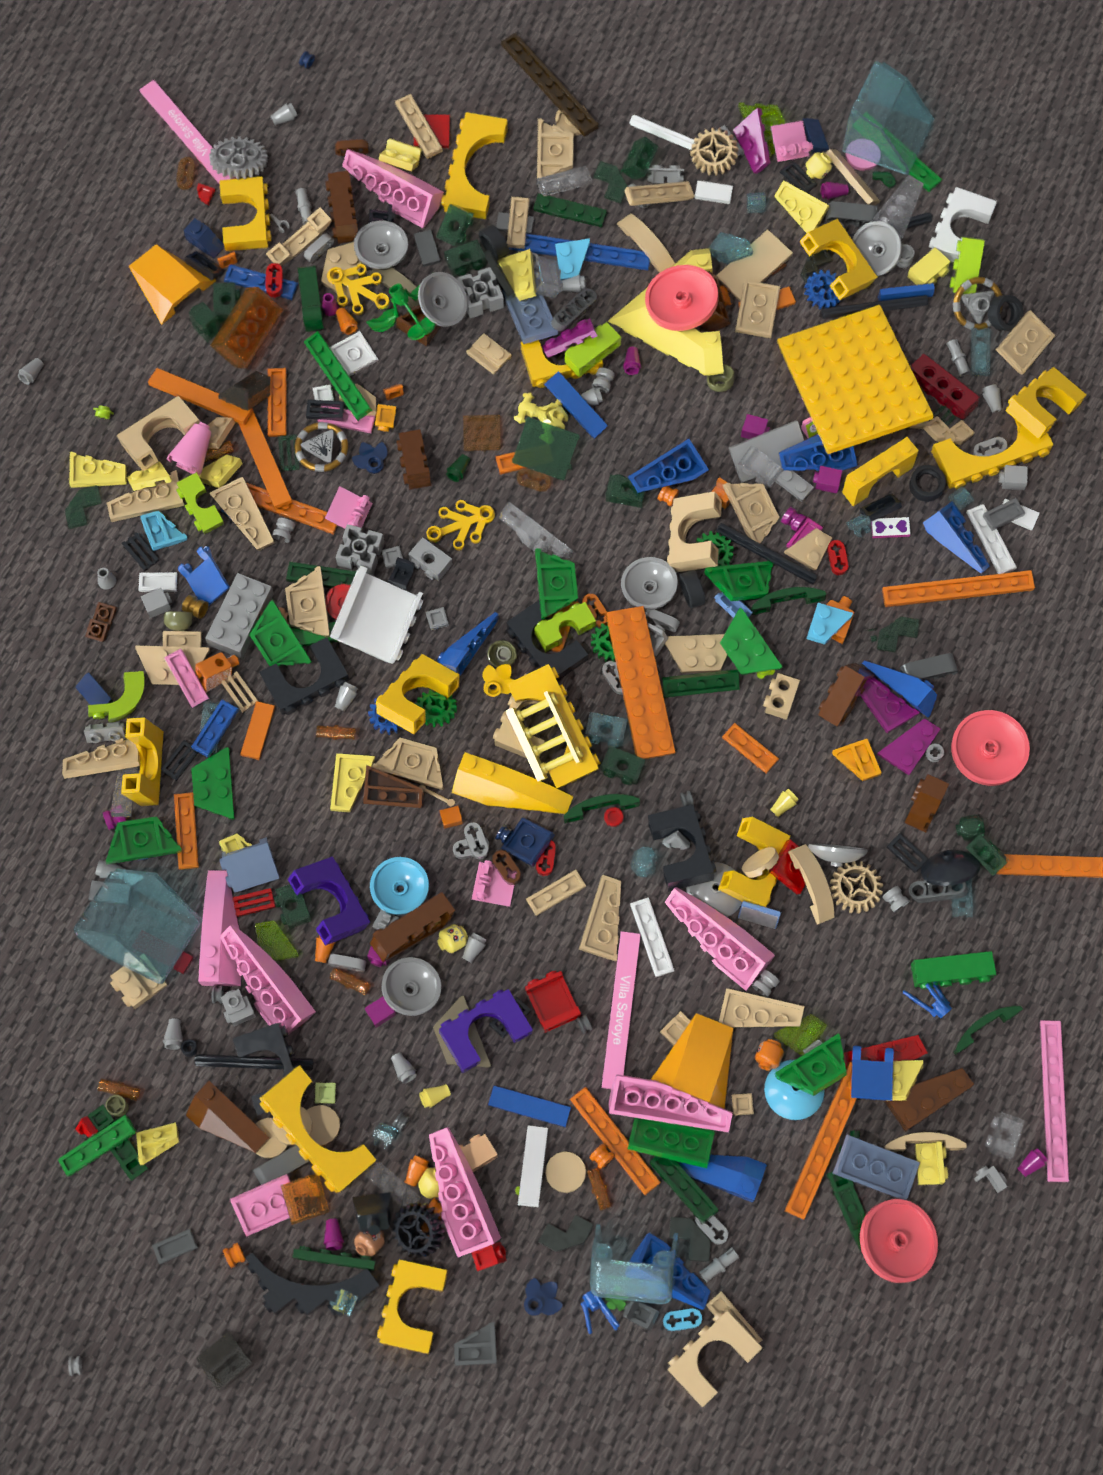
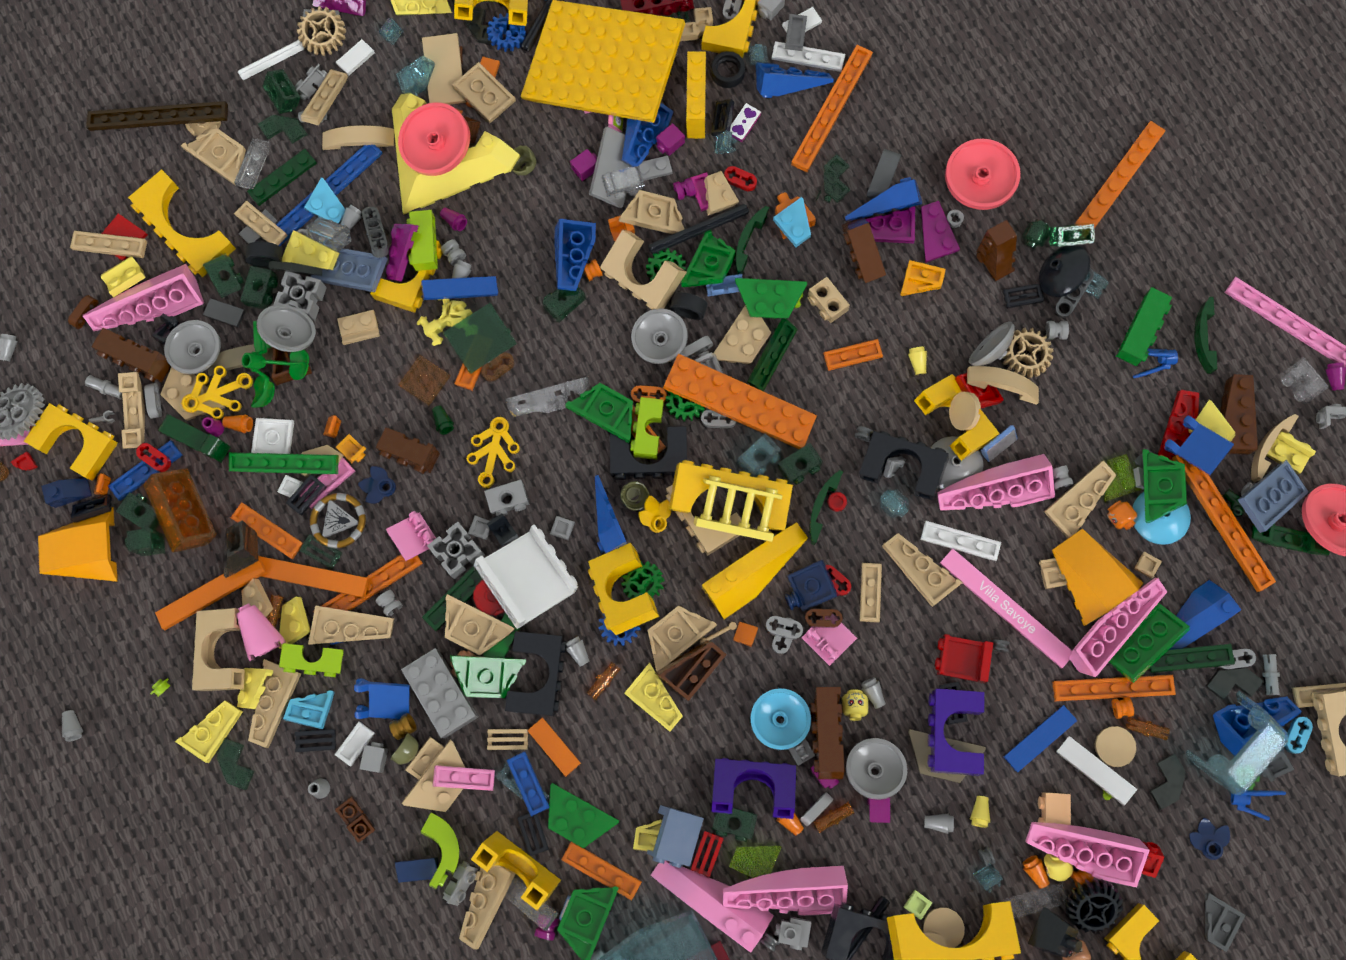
camera: 50 degrees left, 5 degrees up
(214, 670) = (475, 755): orange torso -> none

